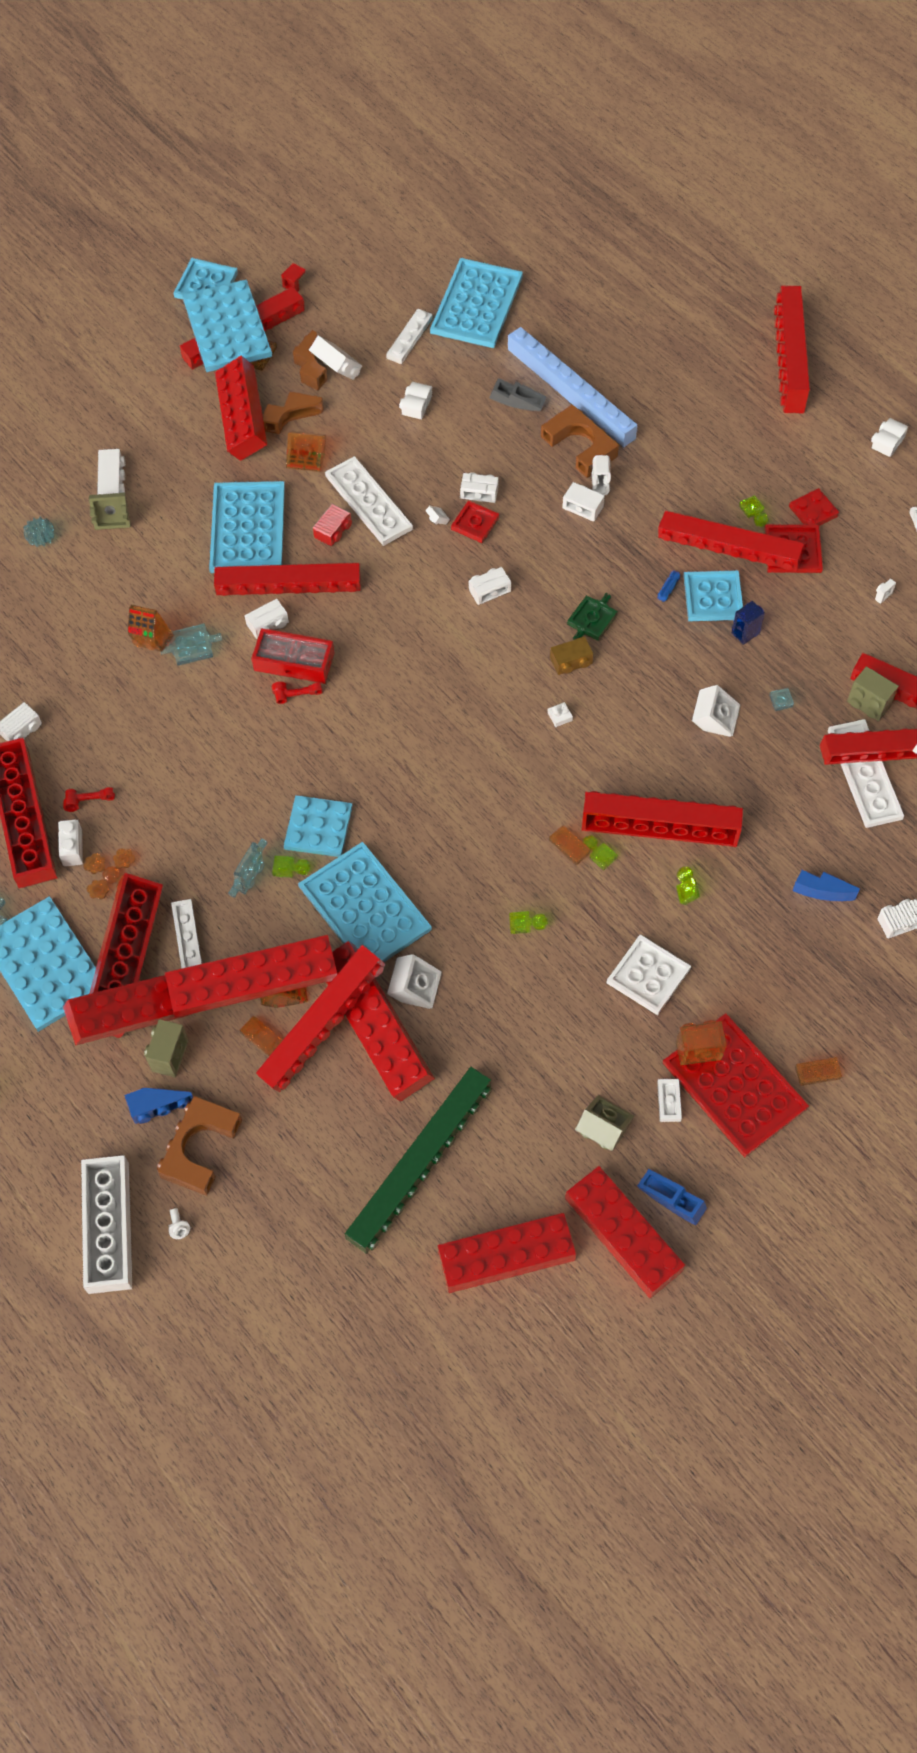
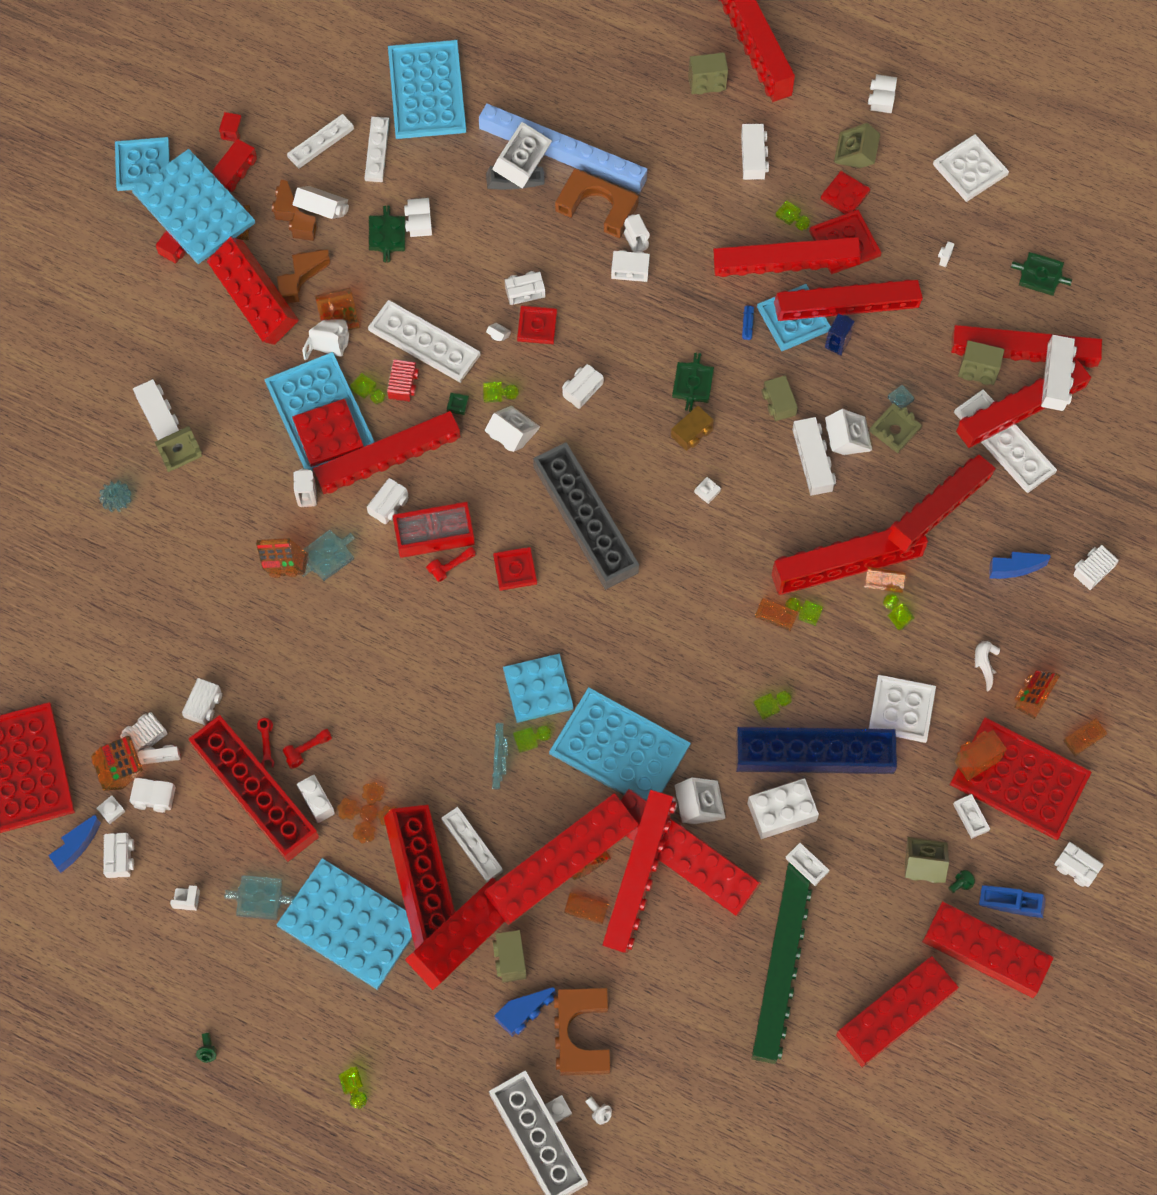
camera: 25 degrees left, 5 degrees up
(61, 768) = (265, 740): none -> red brick
(141, 1207) = (558, 1109): none -> white plate
(199, 580) = (305, 488): none -> white brick
(243, 542) = (327, 432): none -> red plate
(284, 467) = (328, 337): none -> white piece
(297, 518) = (364, 386): none -> clear neon green plate
(349, 716) = (514, 568): none -> red plate
(364, 313) = (320, 141): none -> white plate
(371, 561) = (457, 403): none -> dark green plate
(381, 404) = (386, 233): none -> dark green plate
(407, 597) = (511, 428): none -> white slope
(409, 562) = (493, 392): none -> clear neon green plate
(435, 694) = (586, 516): none -> dark grey brick
(483, 1077) = (807, 864): none -> white plate
(488, 1019) = (782, 808): none -> white brick
(529, 375) = (522, 155): none -> white brick
(546, 978) = (816, 750): none -> clear blue brick
(633, 1156) = (964, 880): none -> dark green plate
(666, 659) = (780, 398): none -> olive brick
(672, 720) = (813, 456): none -> white brick
(688, 852) = (885, 580): none -> clear orange plate
(732, 366) = (708, 73): none -> olive brick
(744, 445) = (754, 151): none -> white brick
(748, 960) = (982, 660): none -> white piece
(754, 1188) = (1078, 865): none -> white brick
(767, 713) = (900, 417): none -> olive piece
(771, 596) = (847, 300): none -> red brick
(771, 799) = (941, 503): none -> red brick
(787, 1010) = (1036, 692): none -> clear orange slope
(844, 473) = (857, 146): none -> olive slope

